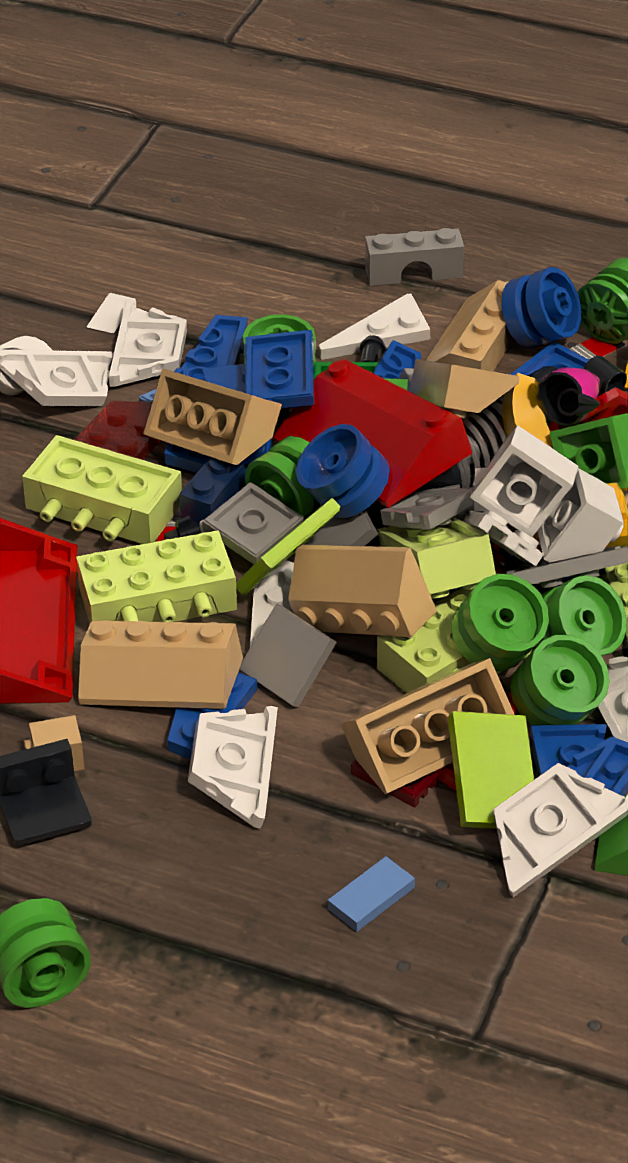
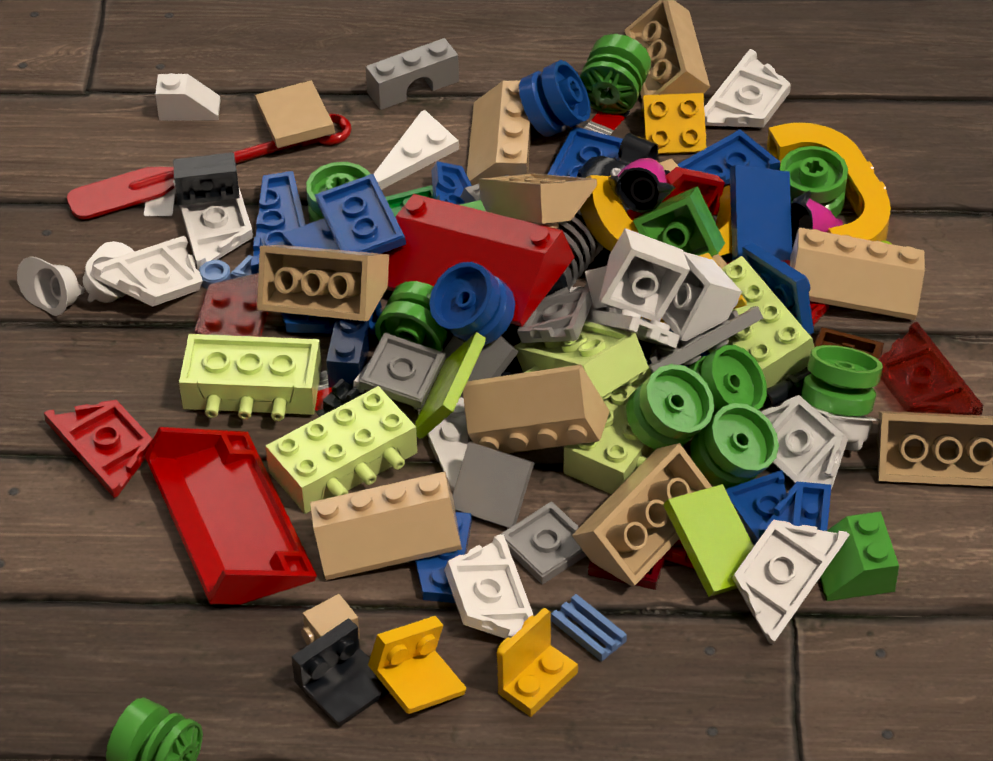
camera: 20 degrees left, 5 degrees up
(111, 298) = (155, 182): none -> piece
(116, 805) = (412, 668): none -> yellow bracket
(123, 391) = (214, 272): none -> medium blue tile
(152, 302) = (206, 178): none -> black bracket
(178, 230) = (185, 99): none -> white slope
(237, 839) = (530, 667): none -> yellow bracket
(277, 267) = (294, 114): none -> tan tile
(311, 802) = (593, 623): none -> medium blue tile
(315, 729) = (544, 542): none -> light grey tile
(371, 893) = (659, 677): medium blue tile -> none
(372, 349) = (417, 174): black pin -> none

